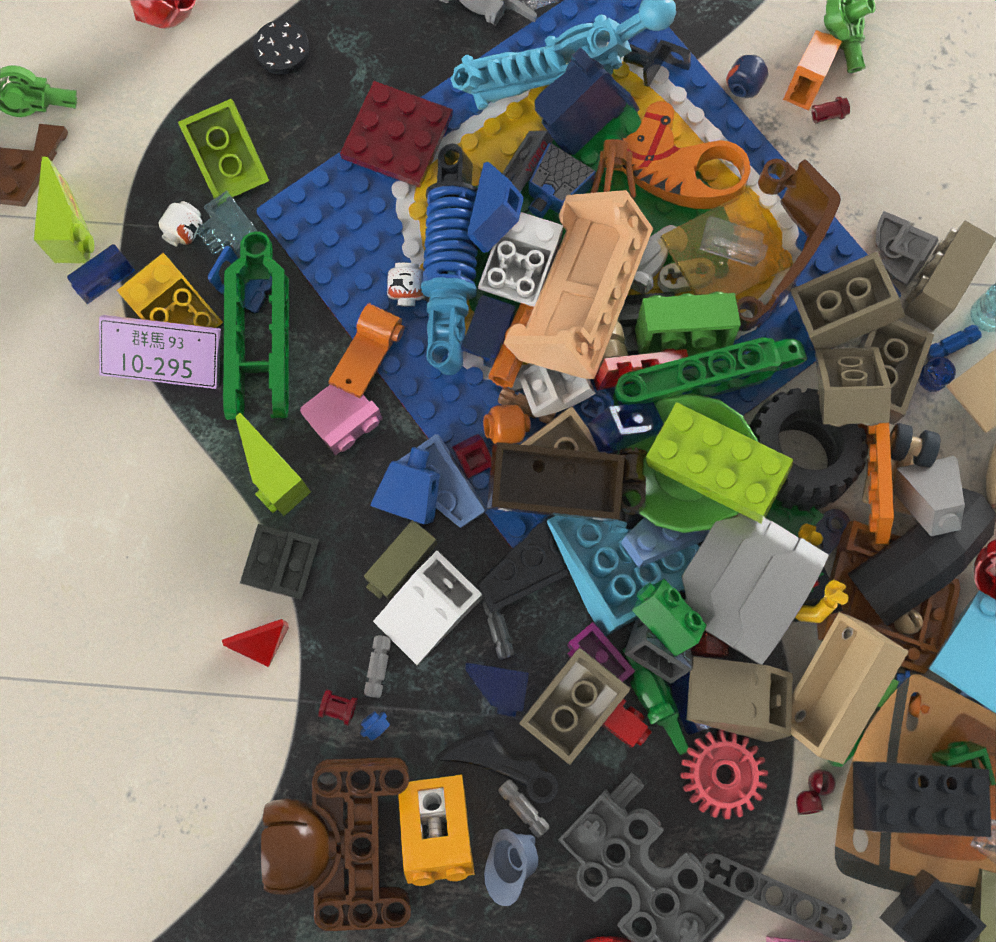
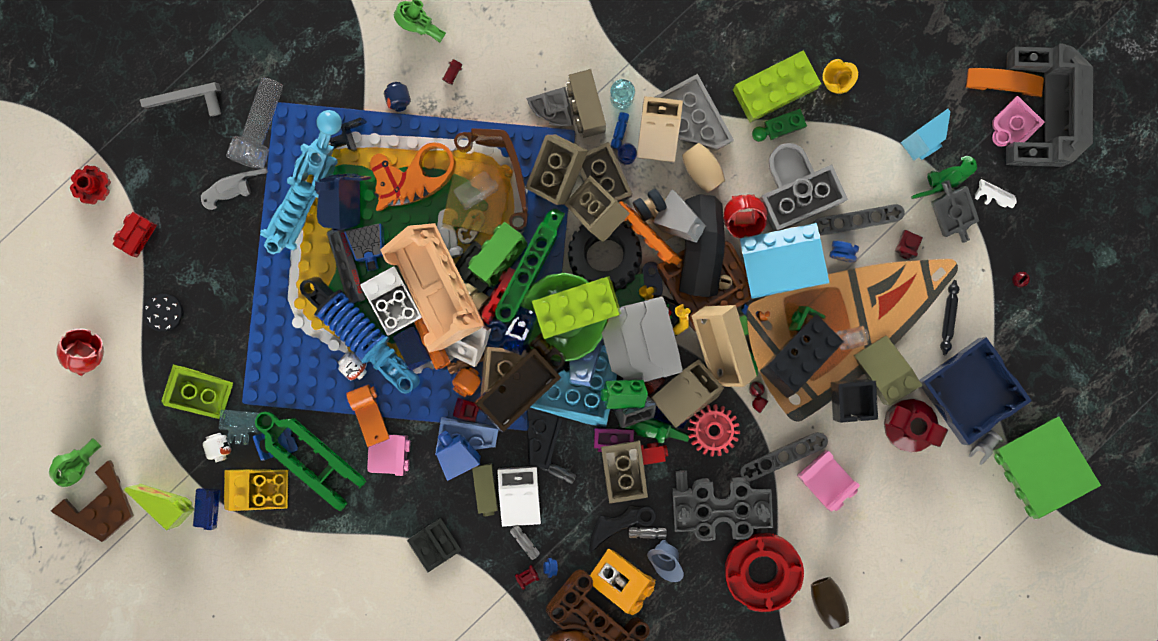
camera: 50 degrees left, 10 degrees up
(159, 351) = (277, 514): lavender tile -> none
(259, 643) = (465, 588): red slope -> none
(275, 479) = (390, 514): lime slope -> none
(396, 134) = (267, 298): dark red plate -> none
(494, 209) = (356, 292): blue slope -> none
(500, 687) = (585, 495): clear blue slope -> none
(614, 156) = (379, 208): dark orange plant -> none
(812, 69) = (423, 60): orange slope -> none

